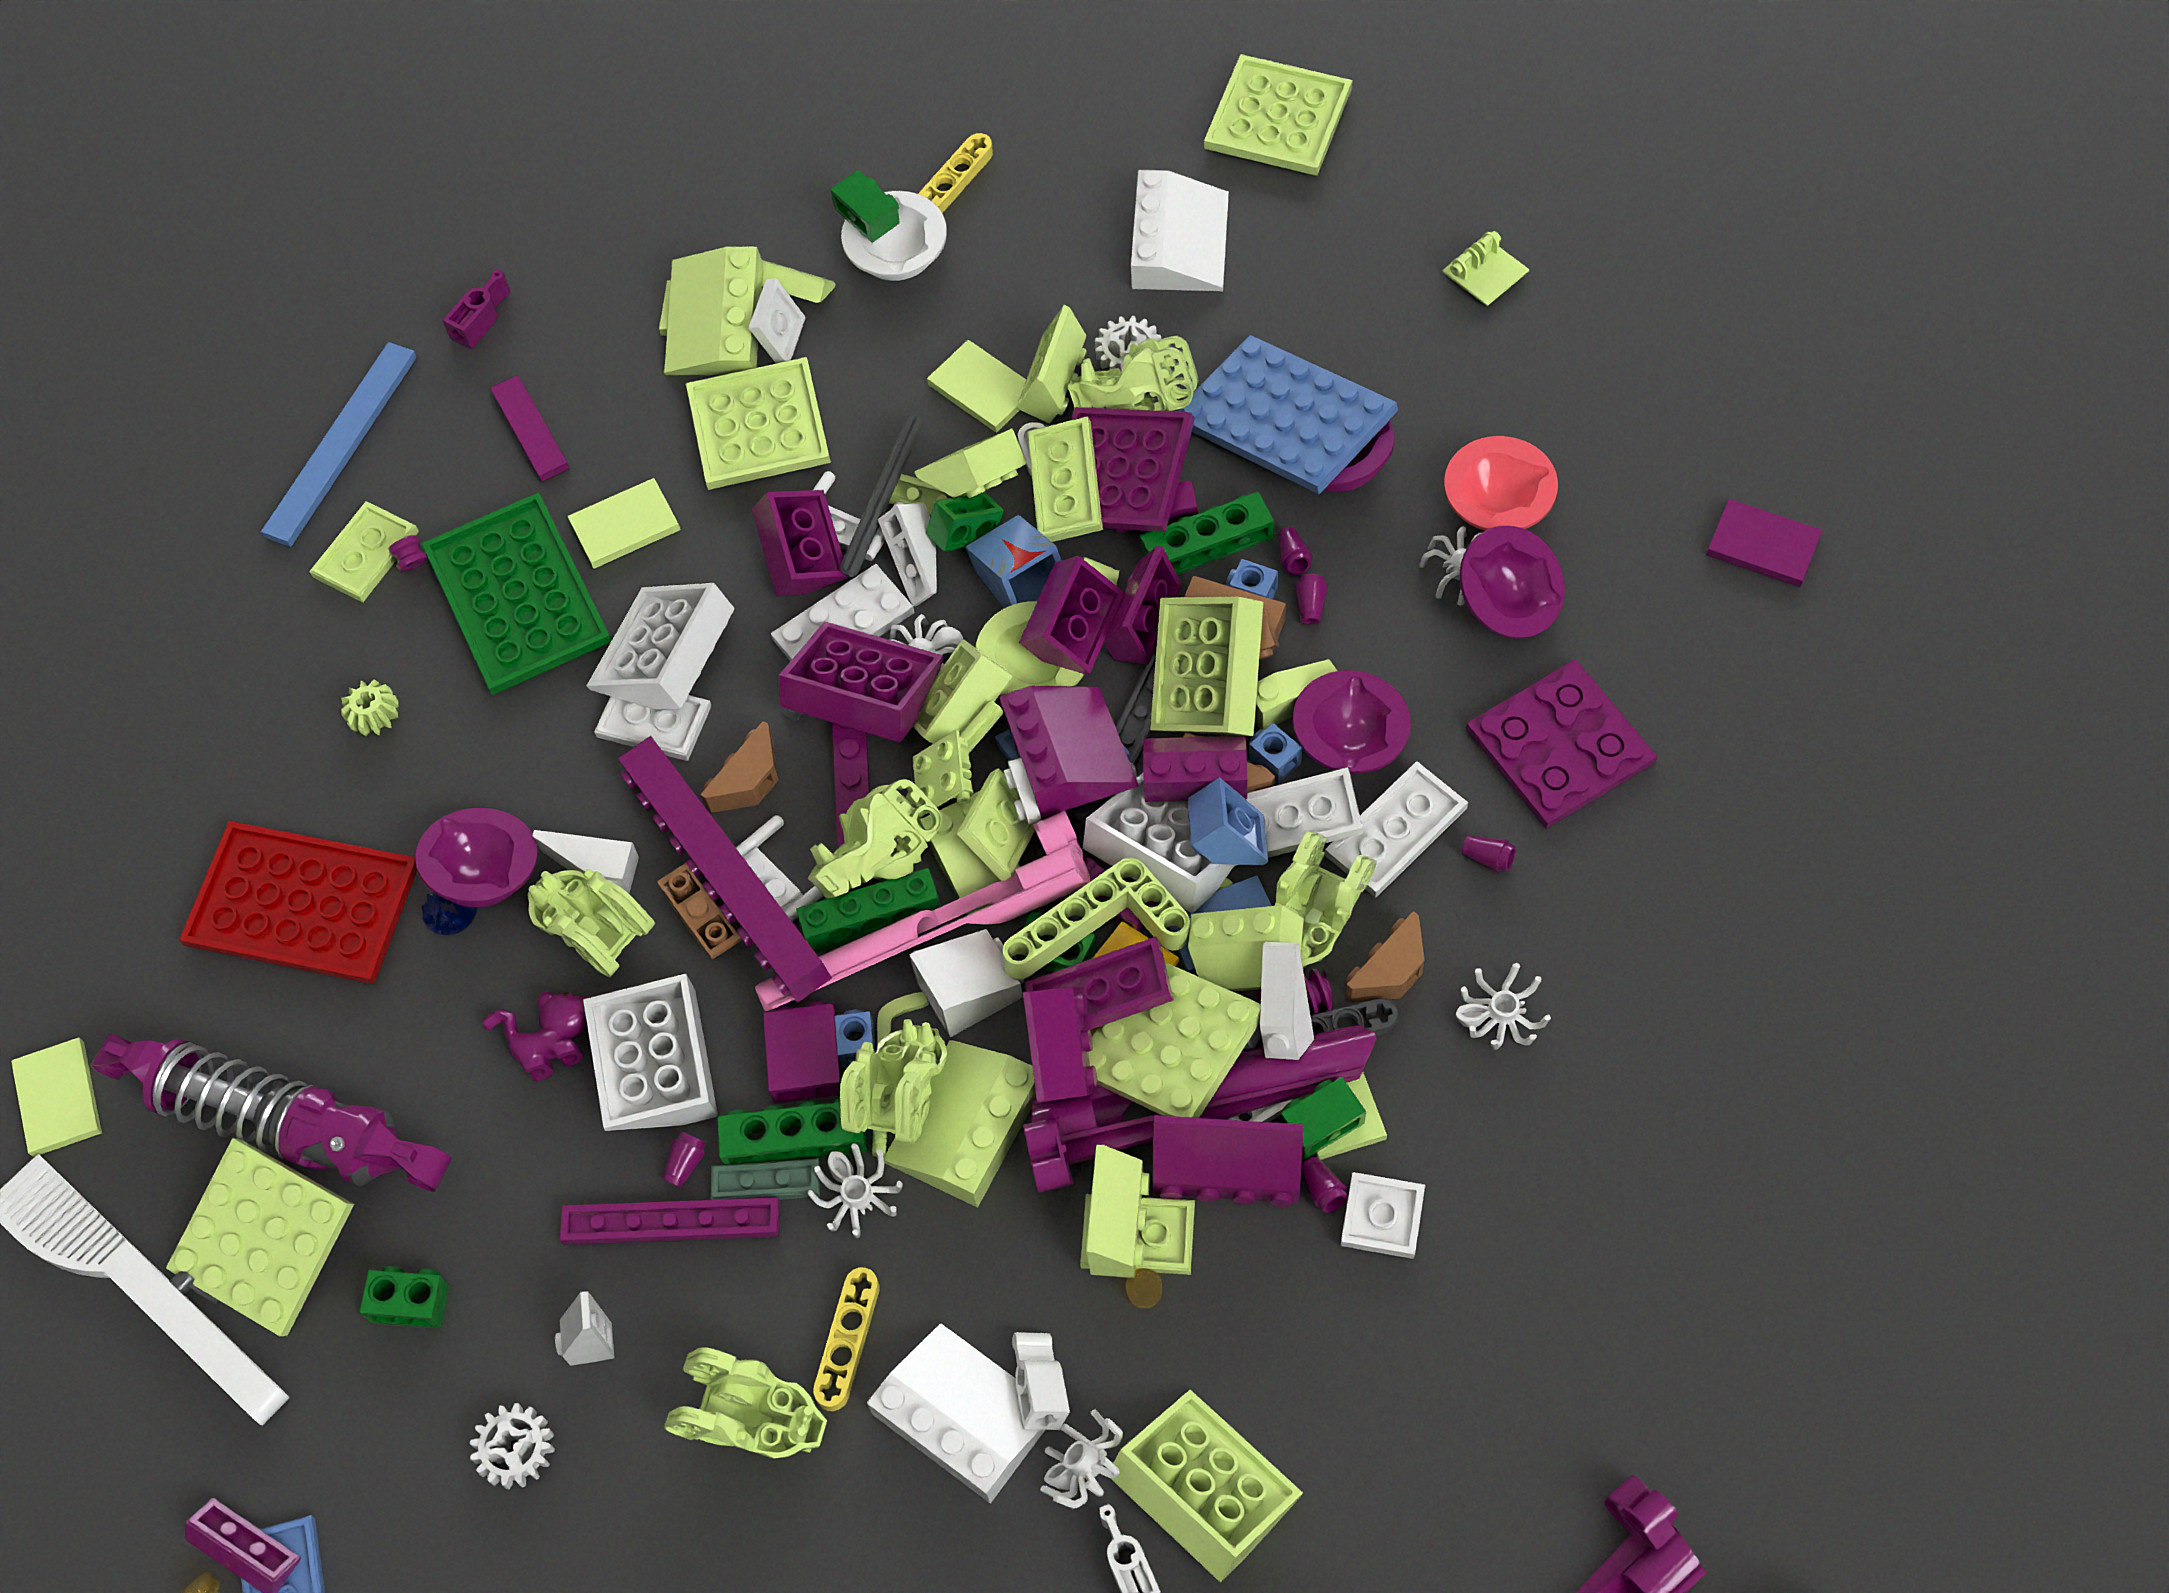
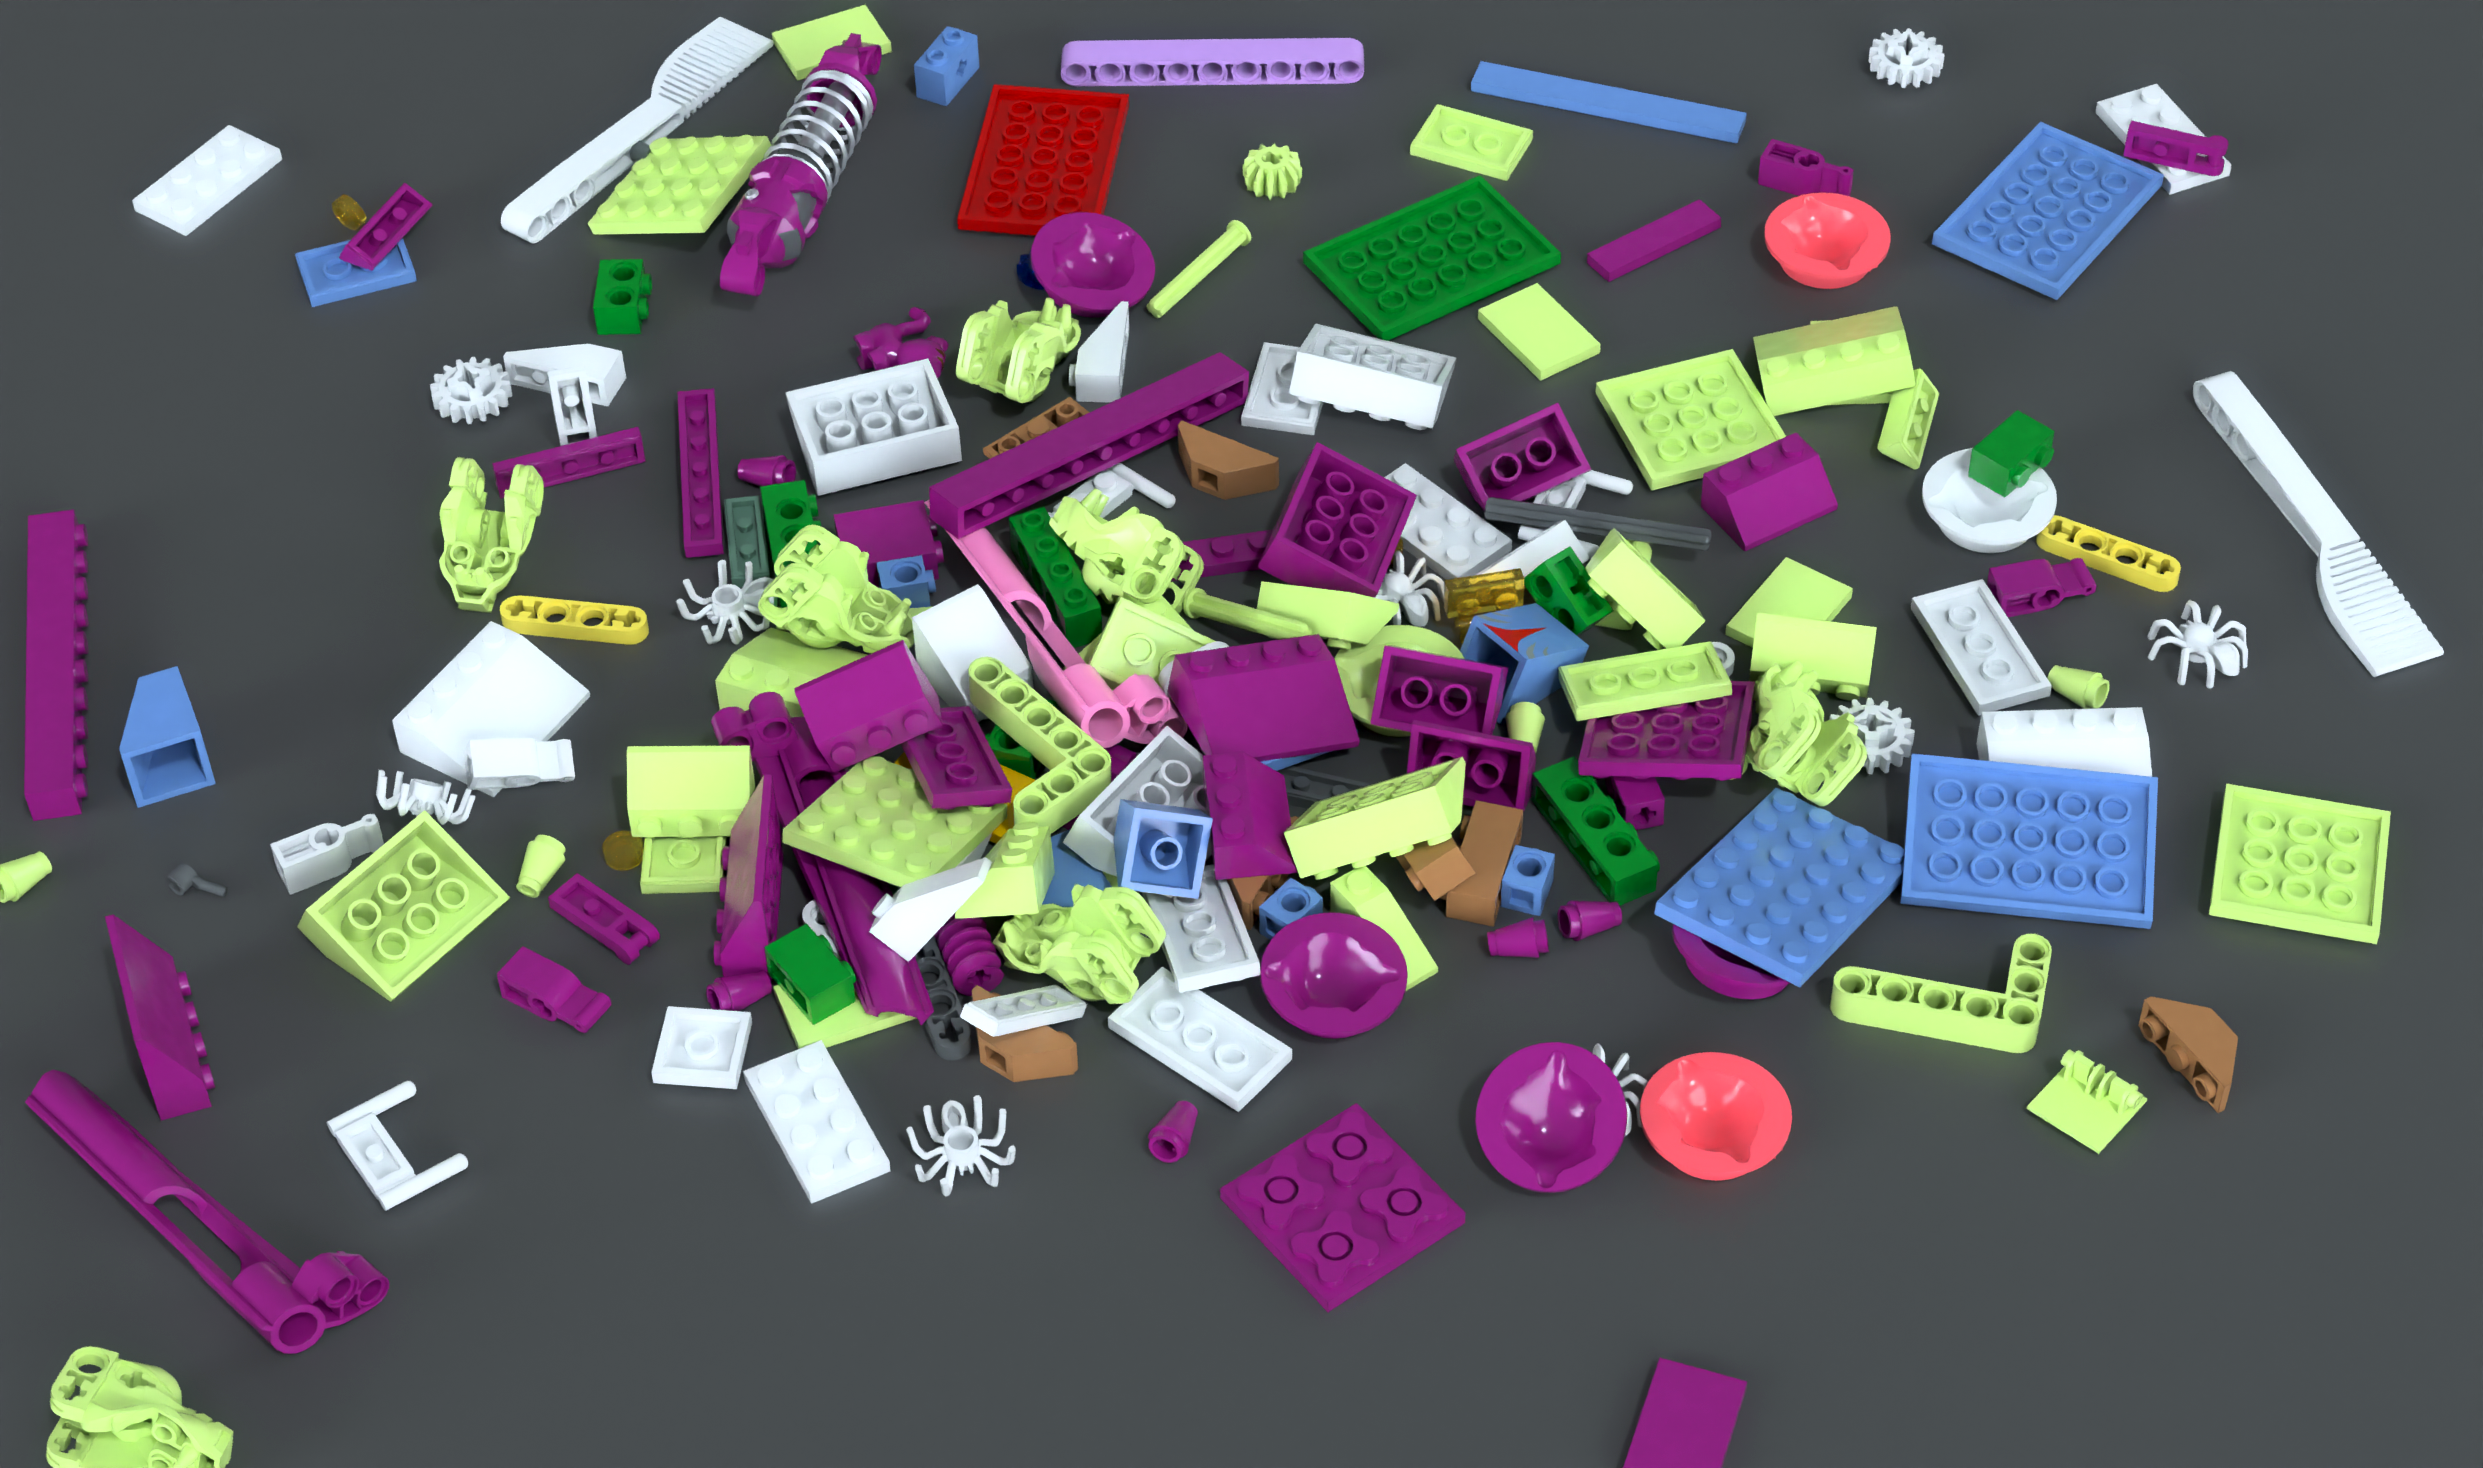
camera: 80 degrees right, 15 degrees down
(138, 982) = (946, 66): none -> medium blue brick
(197, 752) = (1212, 62): none -> lavender beam
(352, 220) = (1906, 58): none -> white gear
(408, 553) = (1464, 165): magenta wheel -> none
(484, 777) = (1173, 292): none -> yellowish green axle
(493, 72) = (2154, 107): none -> white plate
(507, 1339) = (603, 368): none -> white slope
(529, 55) = (2176, 148): none -> magenta plate
(564, 155) = (2048, 210): none -> medium blue plate
(570, 300) = (1827, 239): none -> coral piece
(638, 1345) = (576, 459): none -> magenta tile
(777, 321) = (1827, 405): white plate -> none
(855, 380) = (1768, 492): none -> magenta slope
(944, 771) = (1196, 598): yellowish green hinge -> none
(960, 582) = (1482, 594): none -> clear yellow plate
(985, 223) = (2038, 585): none -> magenta piece
(1008, 41) = (2349, 582): none -> white piece
(1042, 267) = (1980, 647): none -> white plate
(1058, 136) = (2201, 644): none -> white animal
(1093, 212) = (2080, 686): none -> yellowish green cone
(1161, 1360) = (540, 864): none -> yellowish green cone
(1226, 1303) = (603, 917): none -> magenta plate
(1250, 261) = (2030, 841): none -> medium blue plate
(1314, 1343) = (550, 990): none -> magenta piece
(1391, 944) = (1023, 1010): none -> white tile
(1411, 299) = (1950, 1010): none -> yellowish green beam
(1447, 197) = (2194, 1044): none -> medium nougat slope
(1461, 1125) = (816, 1121): none -> white plate
(1490, 1493) = (378, 1156): none -> white plate

